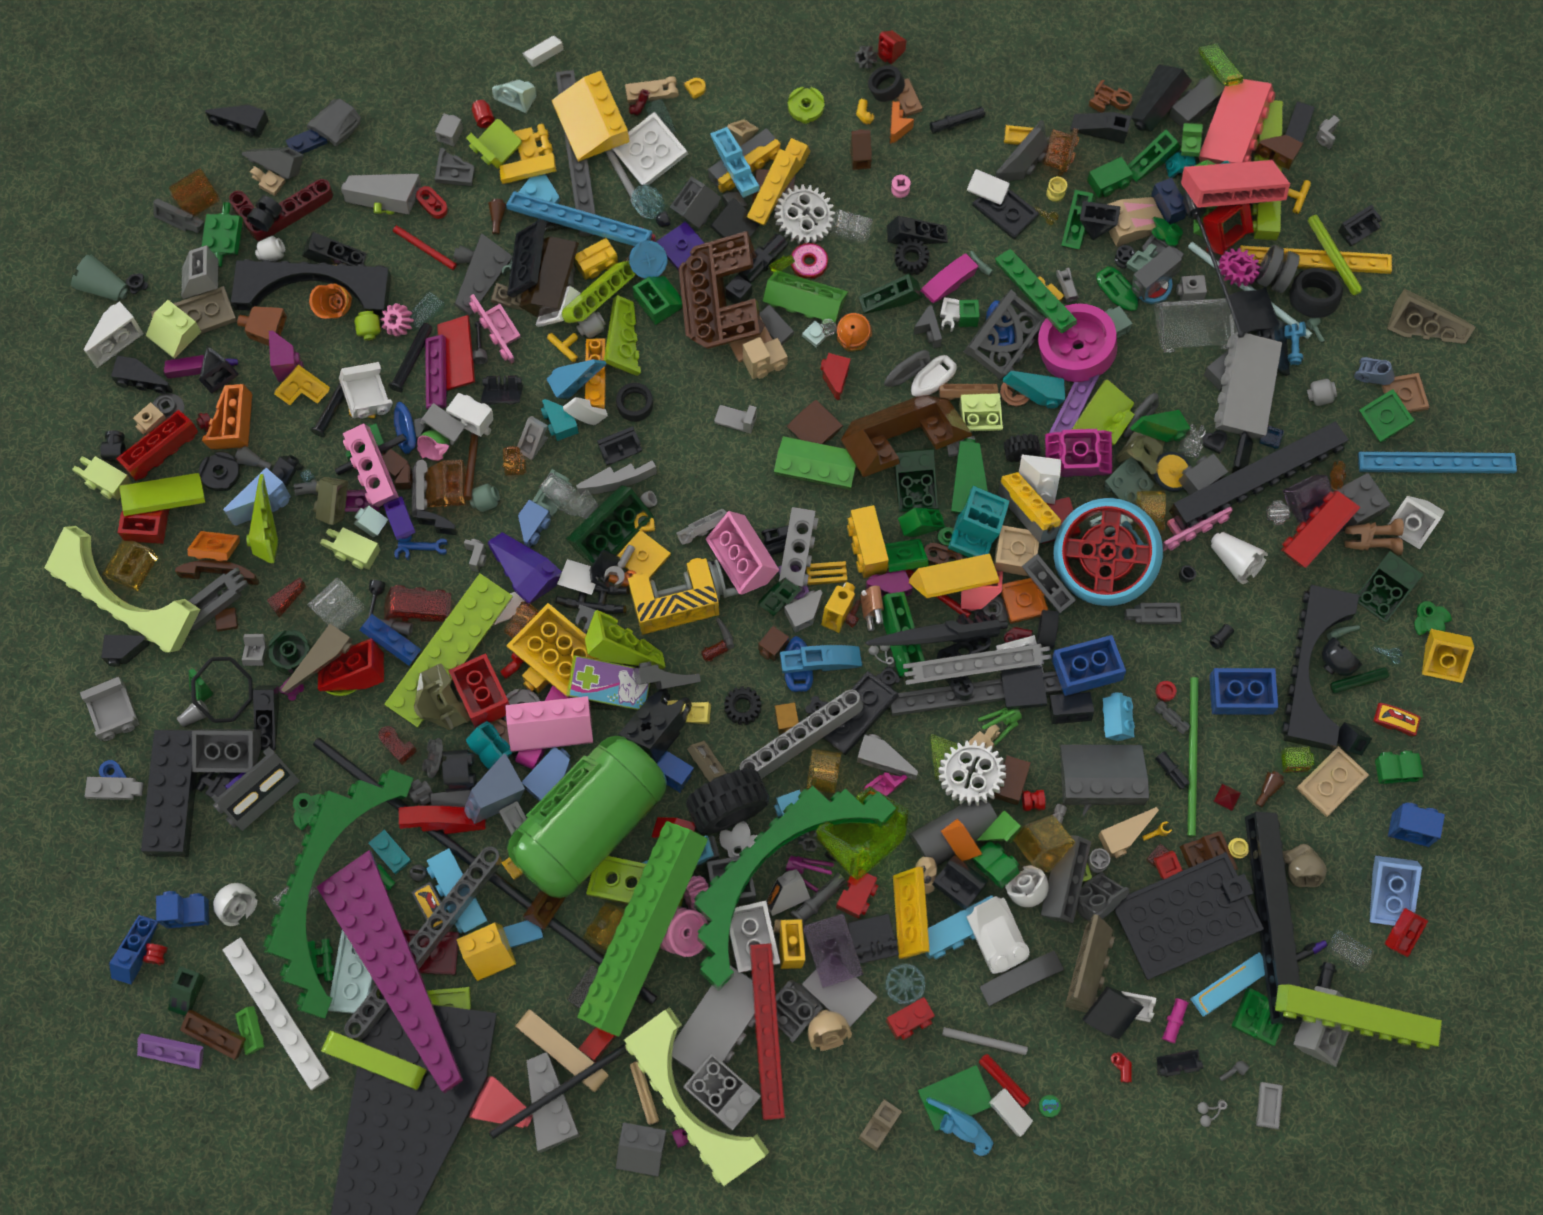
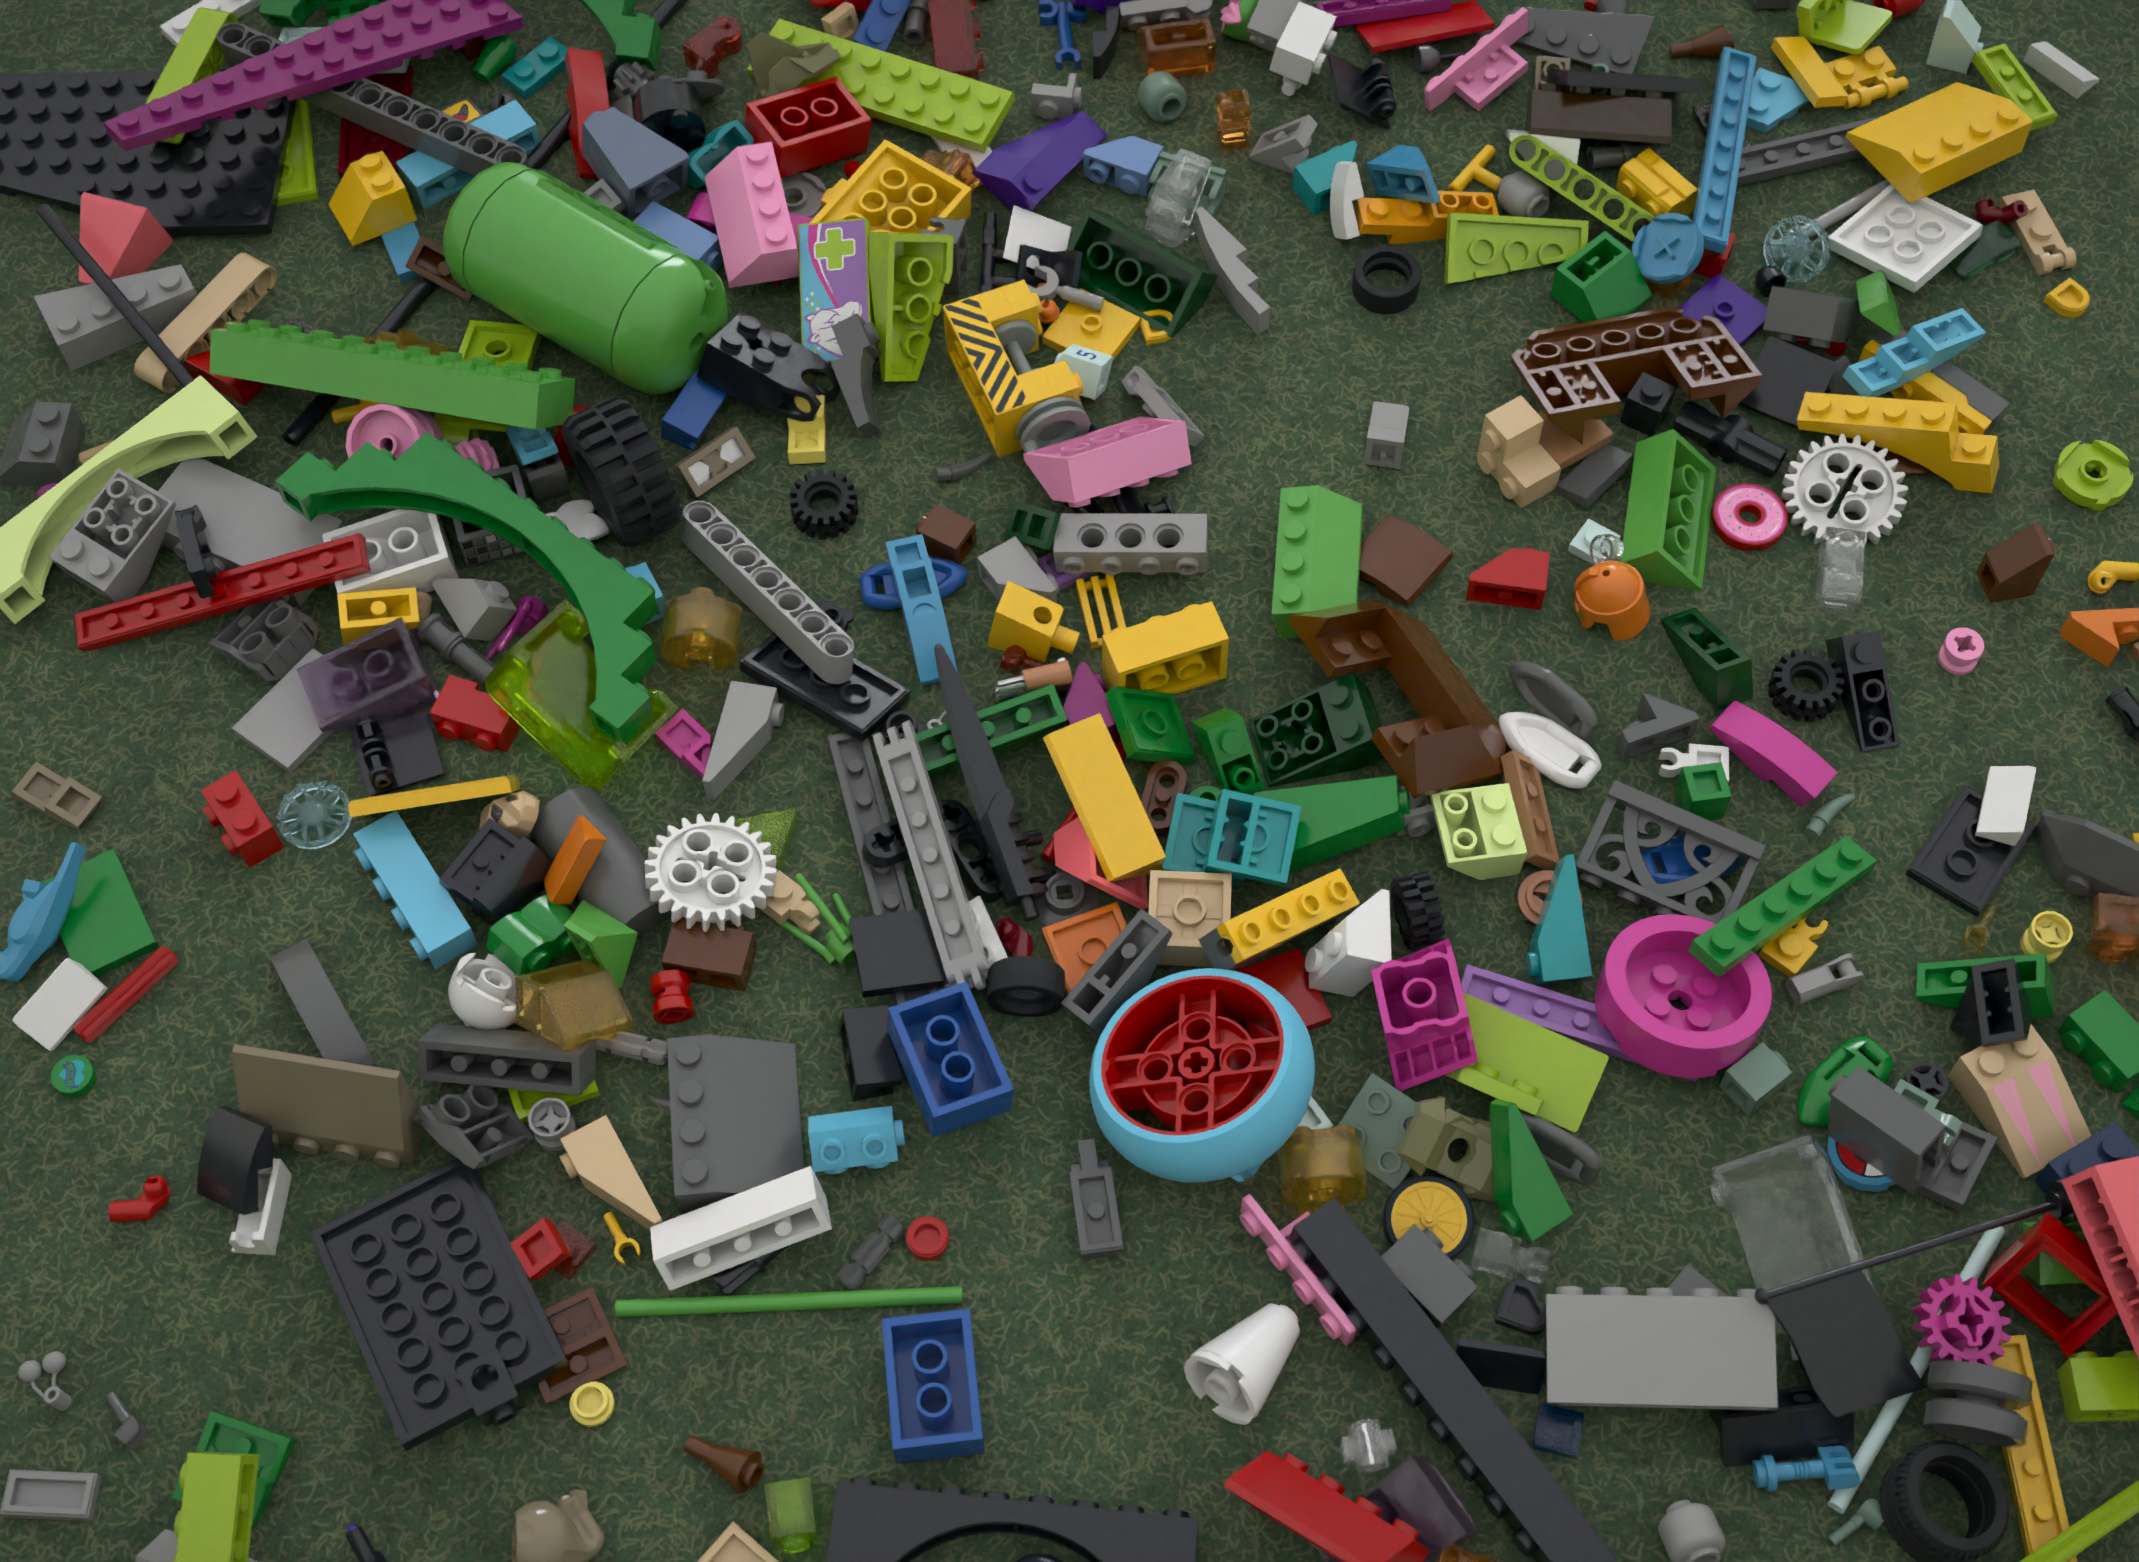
camera: 85 degrees right, 10 degrees down
(393, 669) = (841, 21): none -> tan plate
(471, 466) = (1213, 69): reddish brown bar -> none
(559, 75) = (2012, 82): none -> lime tile
(619, 446) = (1296, 267): black hinge -> none
(649, 499) = (1197, 330): light grey hinge -> none
(675, 561) = (1091, 367): none -> light aqua brick
(696, 171) = (1878, 302): none -> bright green slope
(714, 651) = (919, 445): clear red pin -> none
(742, 131) = (1997, 371): tan slope -> none
(743, 1041) = (195, 546): none -> black hinge
(782, 263) = (1727, 466): clear neon green tile -> none
(786, 717) = (806, 568): pearl gold brick -> none
(828, 1030) = (224, 688): tan cylinder -> none
(984, 1041) = (203, 956): light grey bar -> none
(998, 935) = (391, 947): white slope -> none
(1163, 769) = (740, 1228): none -> white brick
(1167, 232) = (2008, 1166): green plate -> none
(1175, 1020) = (228, 1294): dark pink pin -> none
(1175, 1063) = (142, 1321): black hinge -> none
(1187, 574) = (1198, 1269): black hinge -> none
(1191, 288) = (1882, 1226): light grey brick -> none
(1217, 640) = (1060, 1342): black pin -> none
(1227, 797) = (704, 1377): dark red slope -> none
(1229, 985) = (298, 1398): medium azure slope -> none
(1272, 908) = (457, 1475): black brick -> none

